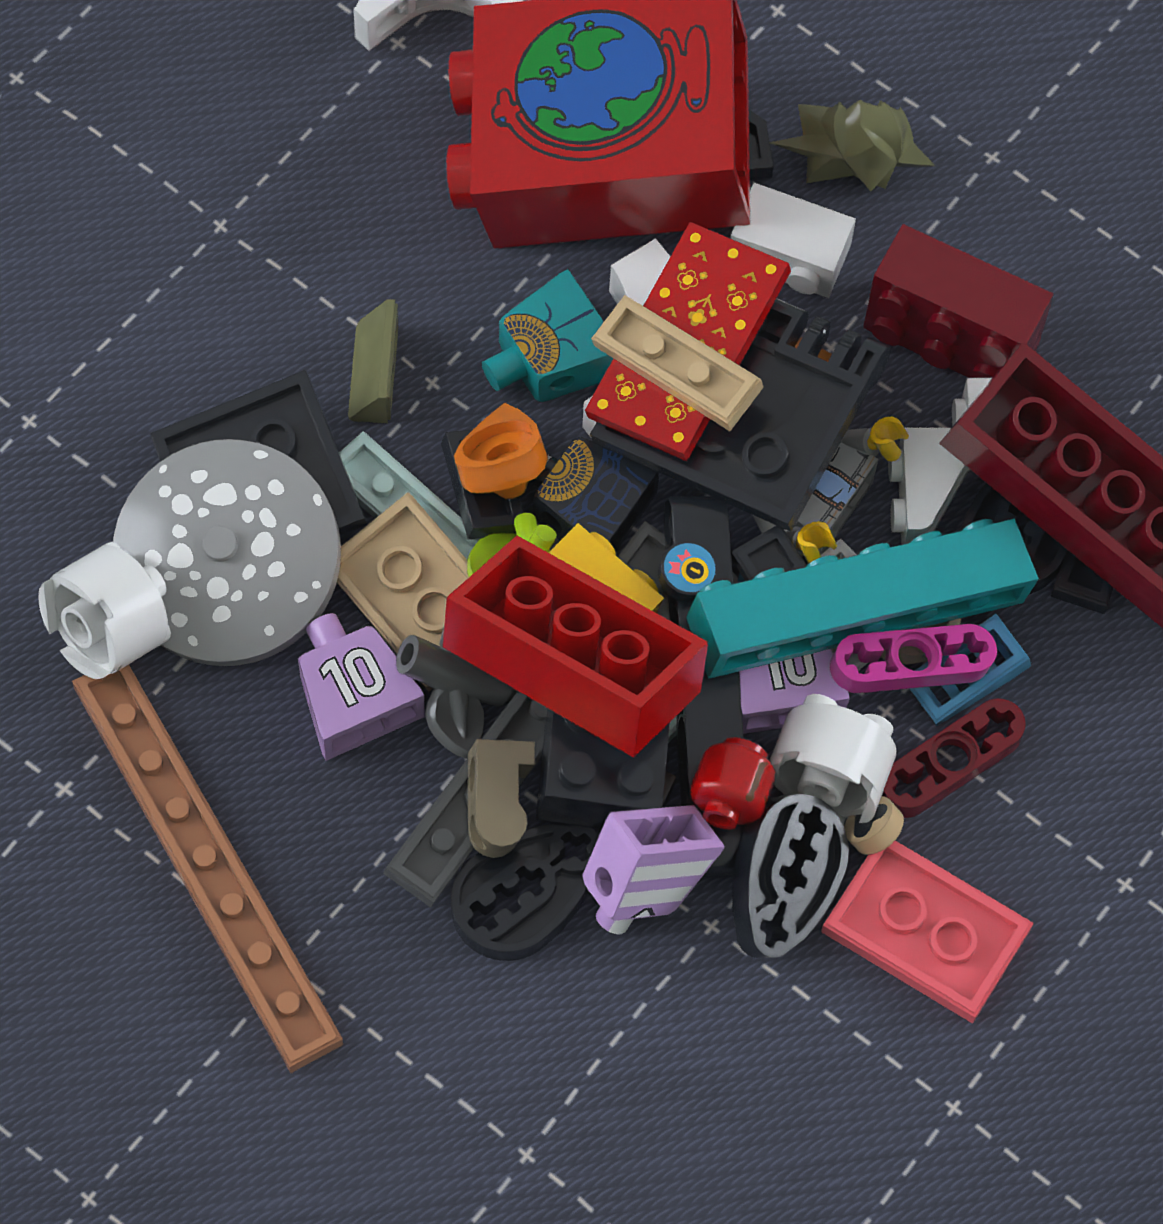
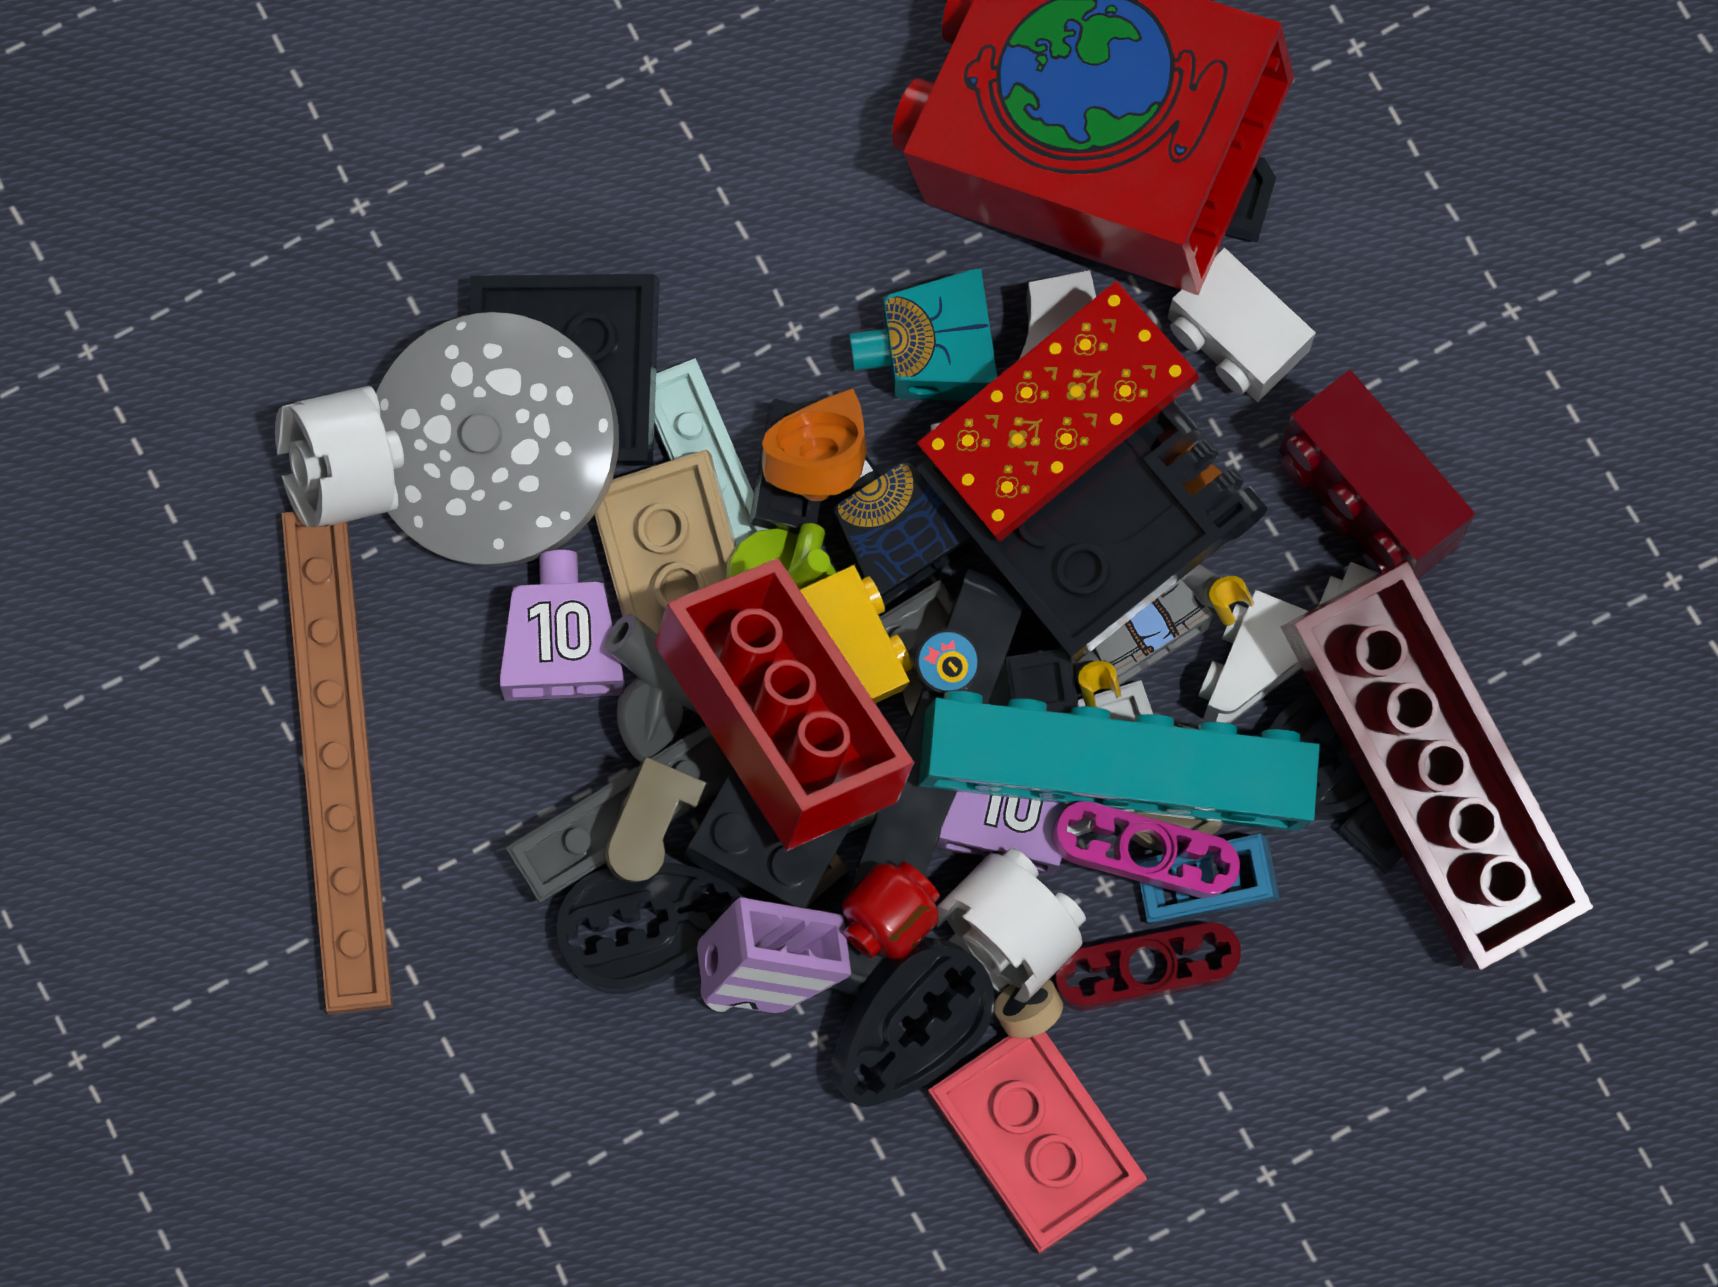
camera: 25 degrees right, 10 degrees up
(374, 365) = (739, 290): olive slope -> none
(677, 362) = (1031, 434): tan tile -> none
(855, 142) = (1360, 243): olive hair -> none

